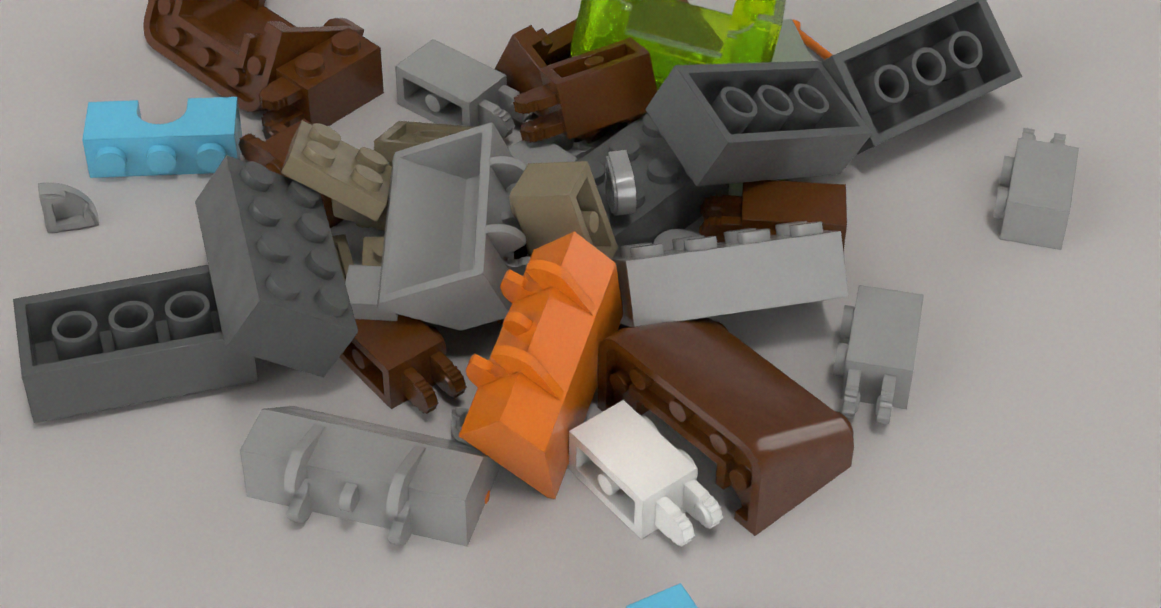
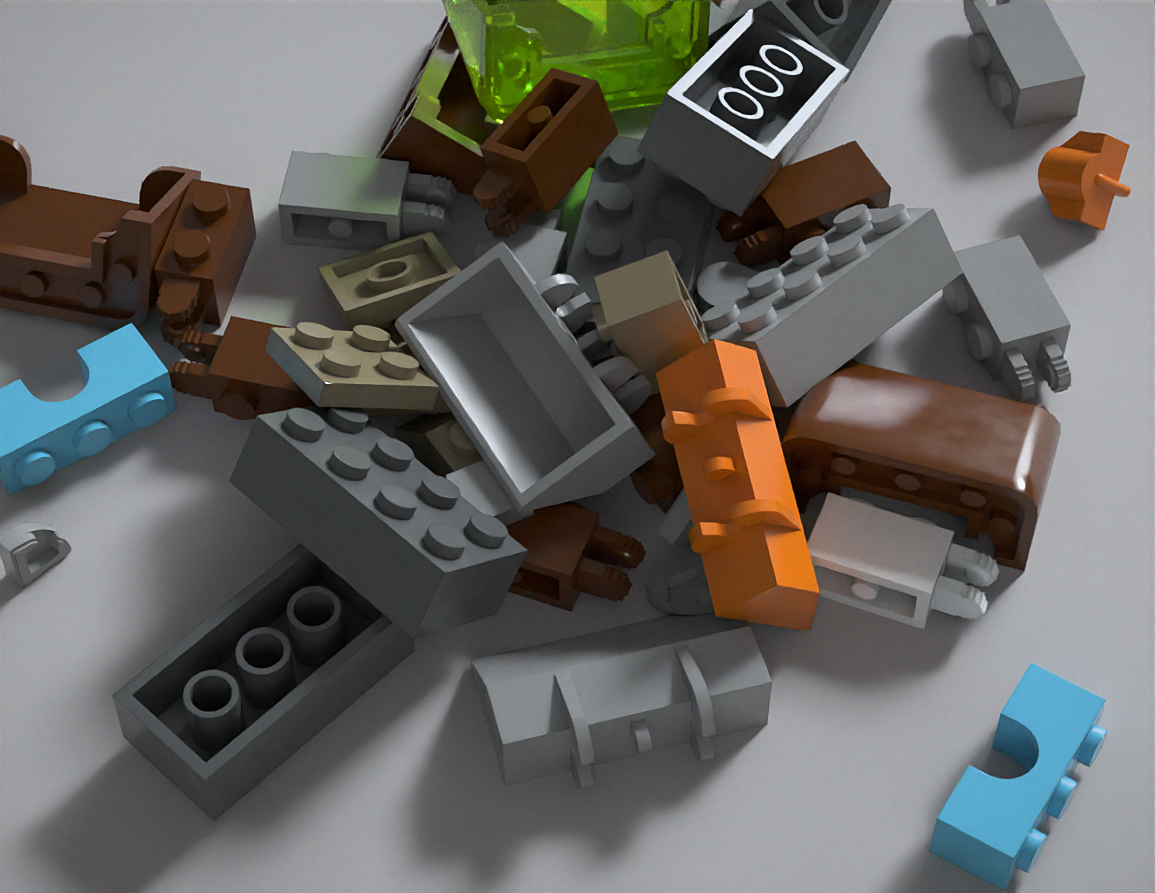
camera: 30 degrees left, 10 degrees up
(620, 183) = (661, 235): light grey tile -> none
(1019, 285) = (1084, 177): none -> orange piece

